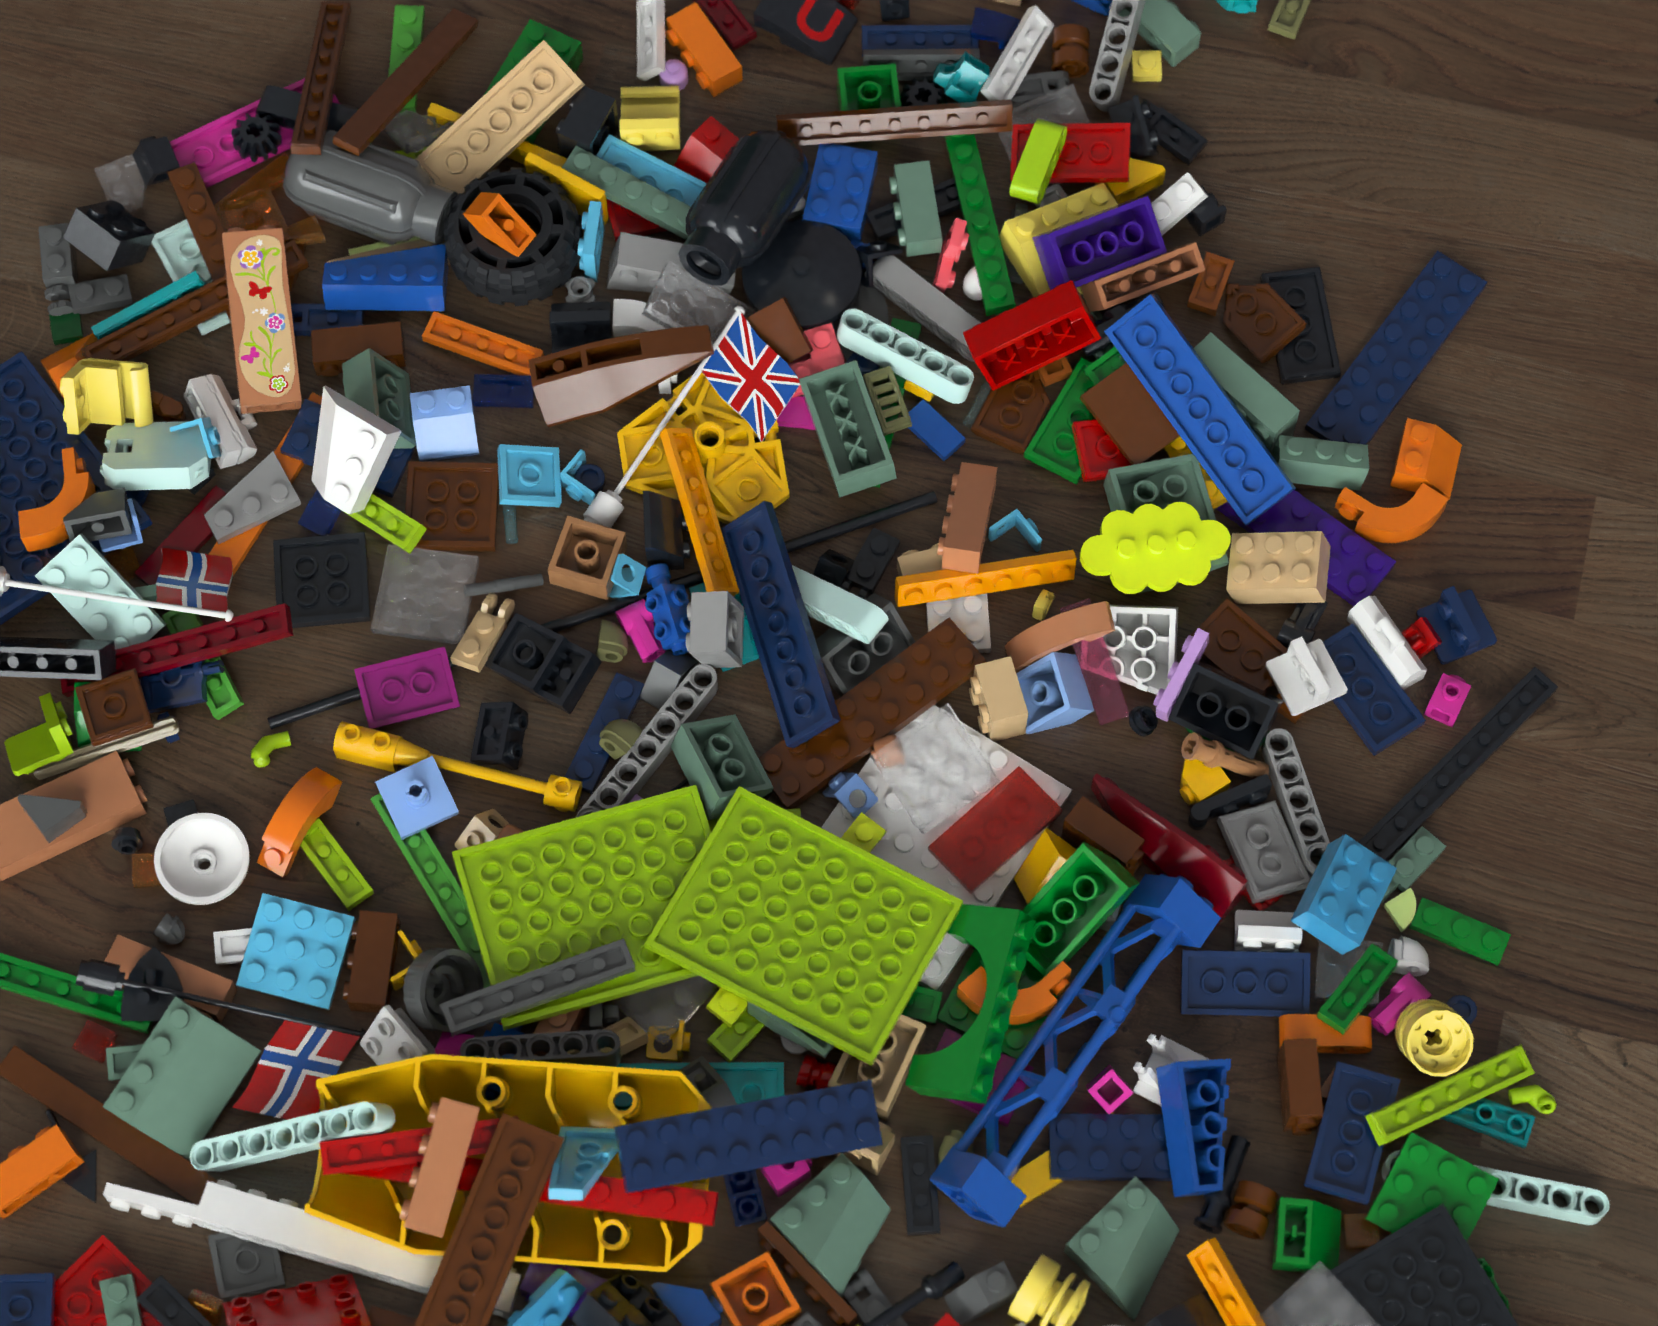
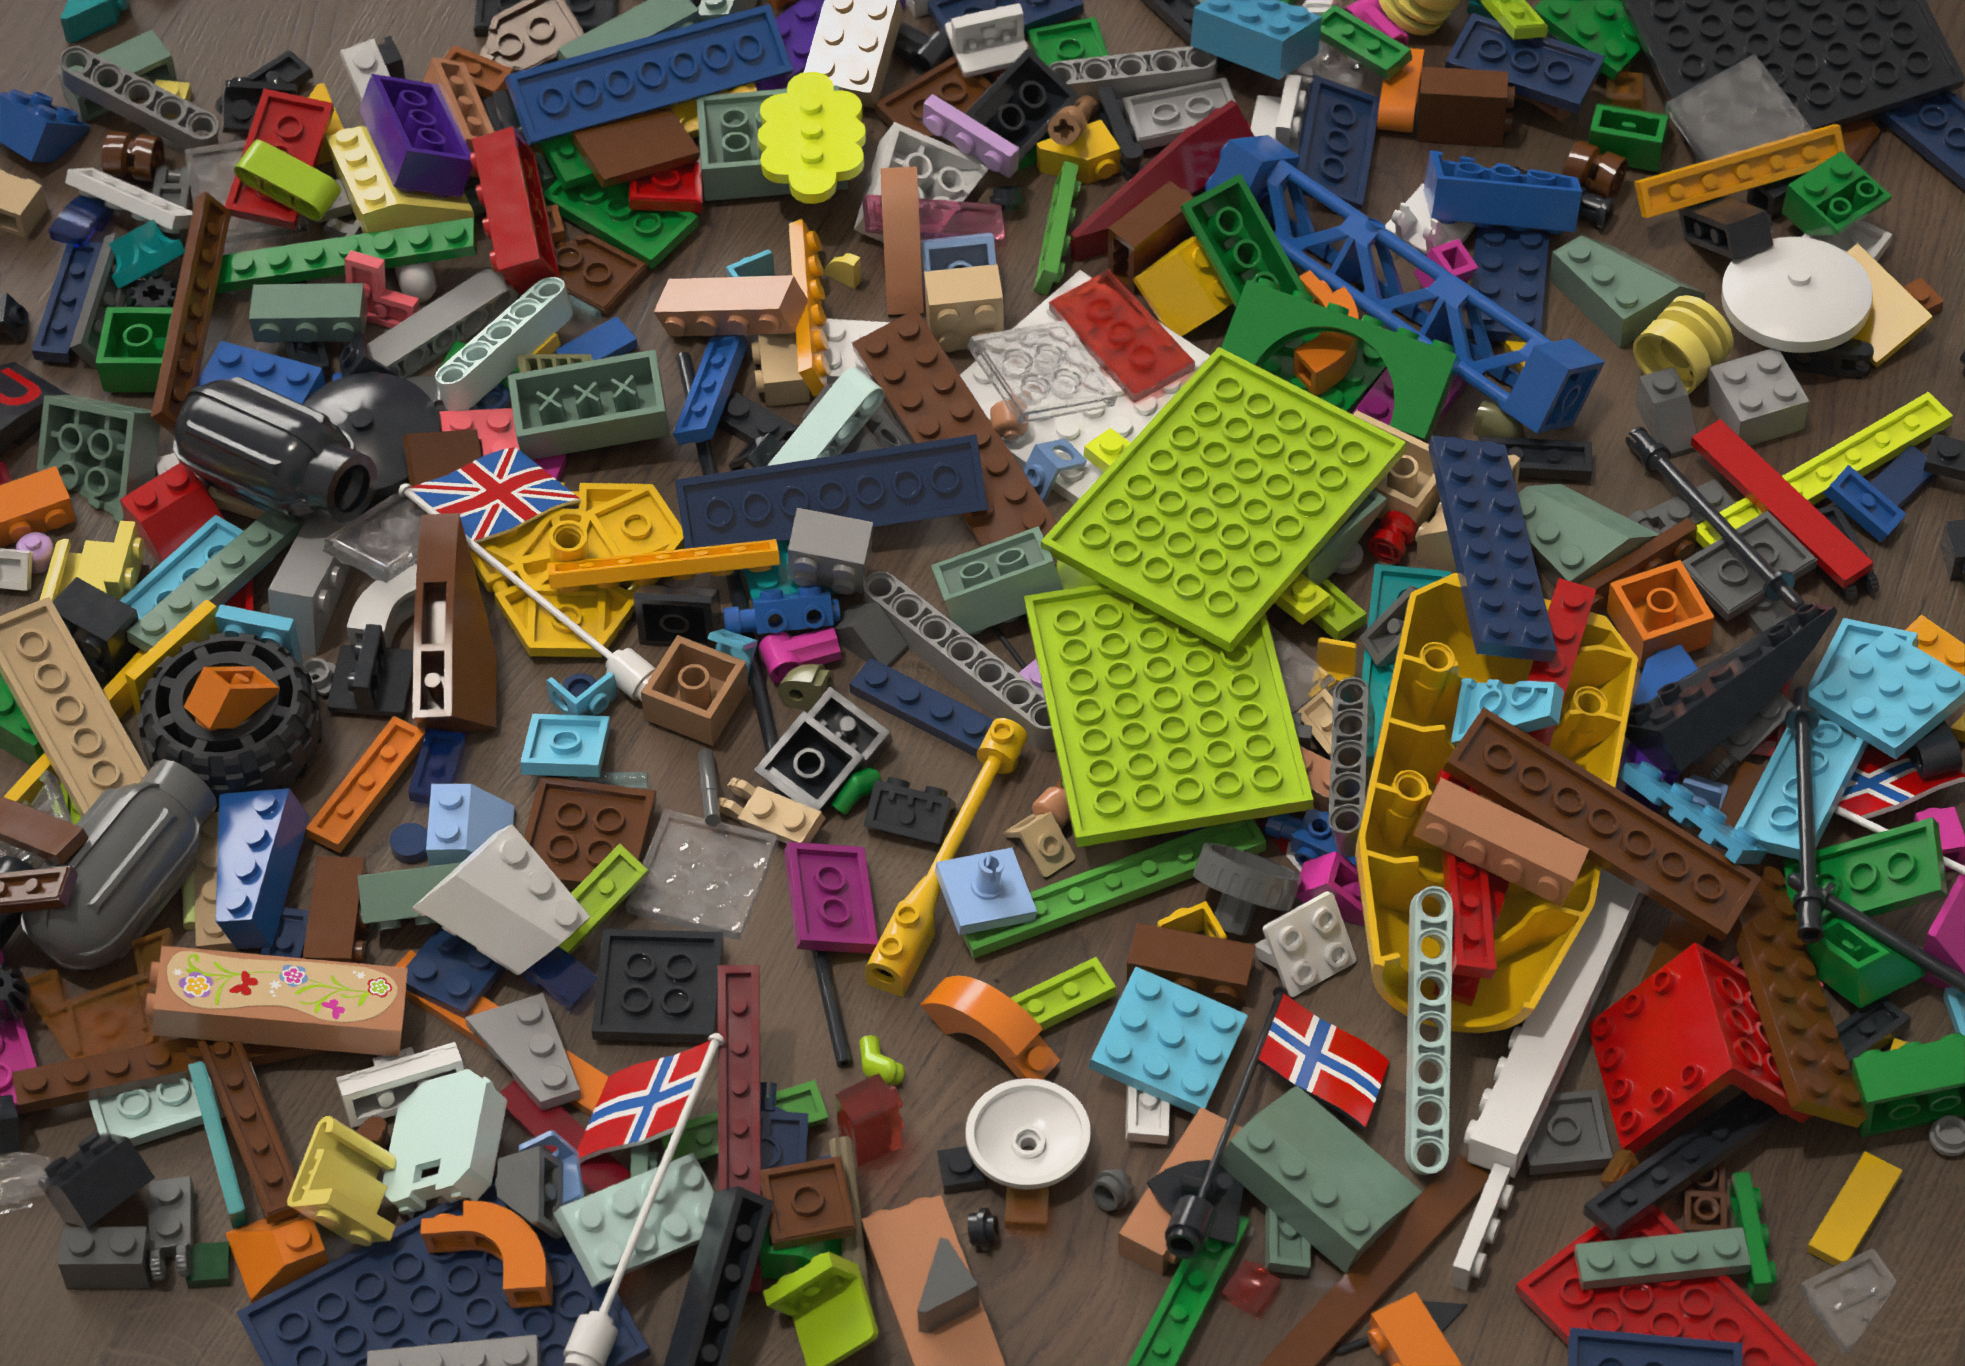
camera: 80 degrees left, 15 degrees down
(202, 743) = (870, 1118): none -> clear red brick
(209, 434) = (426, 1070): medium azure bracket -> none
(435, 380) = (409, 842): none -> dark blue tile
(516, 693) = (857, 787): none -> green arm
(537, 987) = (1272, 754): dark grey plate -> none
(619, 737) = (944, 675): olive piece -> none
(771, 87) = (98, 448): none -> sand green wedge
(887, 519) = (710, 389): none -> blue plate
(1126, 765) = (1059, 218): none -> bright green plate
(1328, 750) = (1068, 41): none -> green tile

